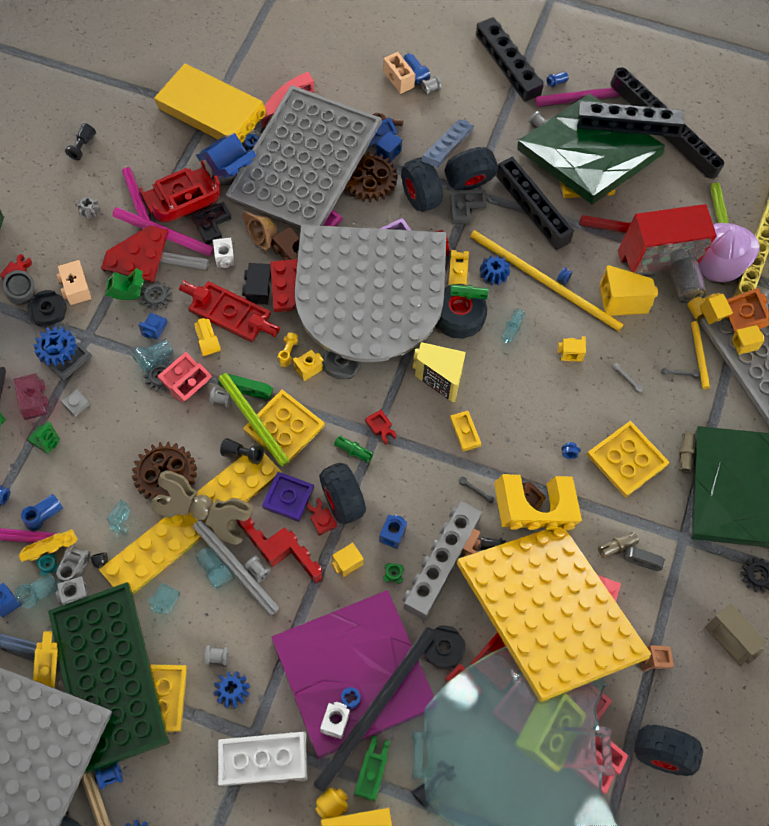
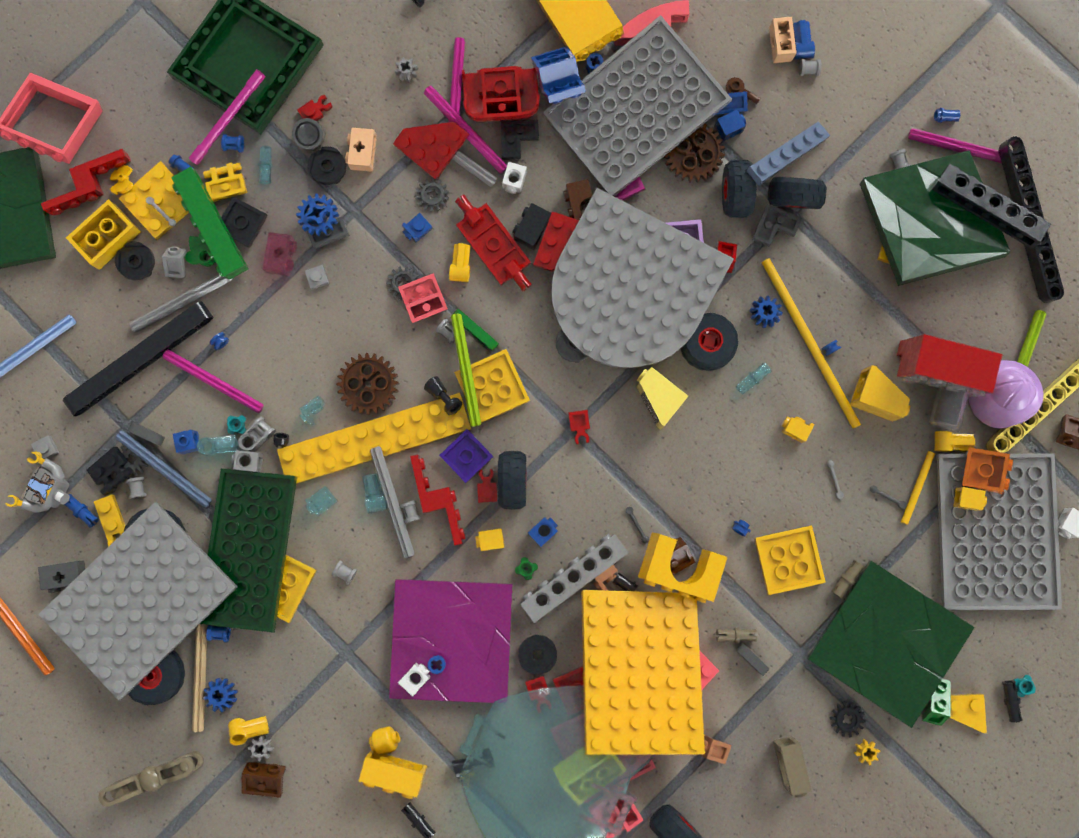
camera: 30 degrees right, 20 degrees up
(42, 511) = (249, 373): blue piece -> none
(45, 438) = (276, 302): green bracket -> none
(46, 661) = (201, 515): yellow hinge -> none
(48, 545) = (240, 409): yellow hinge -> none
(125, 287) = (406, 175): green brick -> none
(147, 357) = (398, 260): clear light blue piece -> none
(201, 507) = (370, 423): dark tan piece -> none
(224, 687) = (347, 615): blue gear -> none
(260, 229) = (561, 168): medium nougat hat -> none
(262, 759) = (344, 678): white hinge -> none
(284, 356) = (523, 315): yellow bar -> none
(306, 369) = (538, 339): yellow brick -> none
(353, 449) = (545, 436): green pin -> none
(372, 771) = (429, 729): green hinge -> none
(374, 710) = (454, 682): black axle -> none
(458, 271) = (731, 295): yellow plate -> none
(465, 431) = (654, 465): yellow plate -> none
(469, 291) = (724, 332): green pin -> none
(509, 59) = (906, 114): black brick -> none
(534, 203) = (842, 255): black brick -> none
(603, 223) = (917, 316): red axle -> none
(715, 308) = (956, 454): yellow brick -> none

